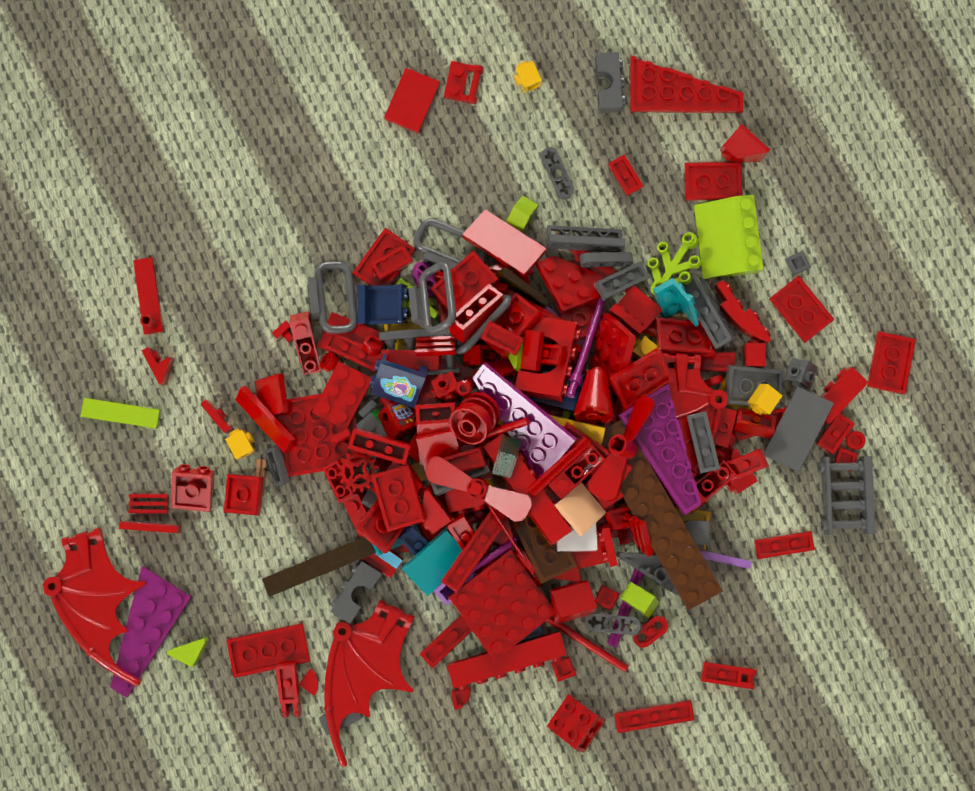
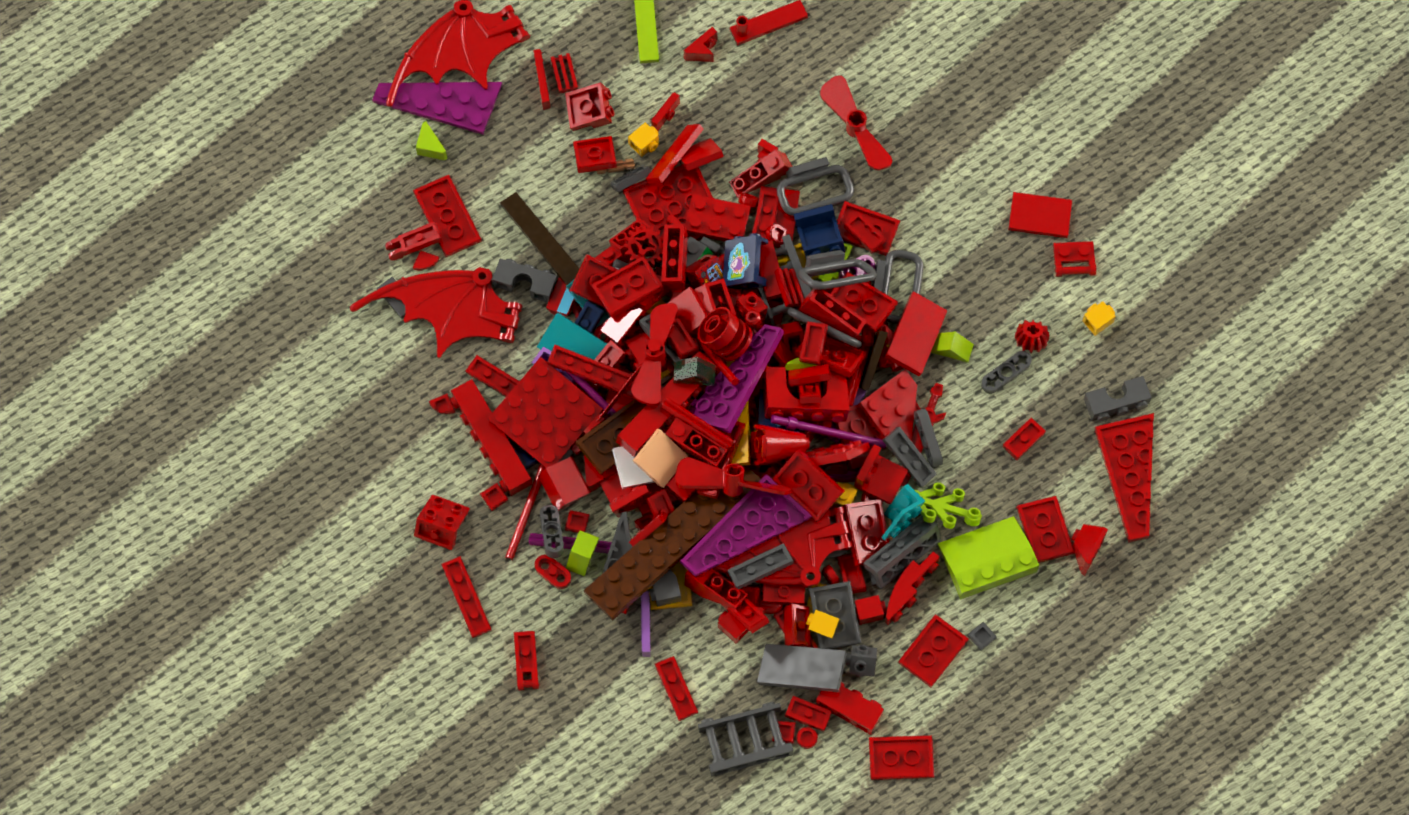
camera: 80 degrees right, 15 degrees down
(247, 250) = (840, 100): none -> red piece
(531, 140) = (1032, 336): none -> red gear
(585, 242) = (940, 415): dark grey fence -> none

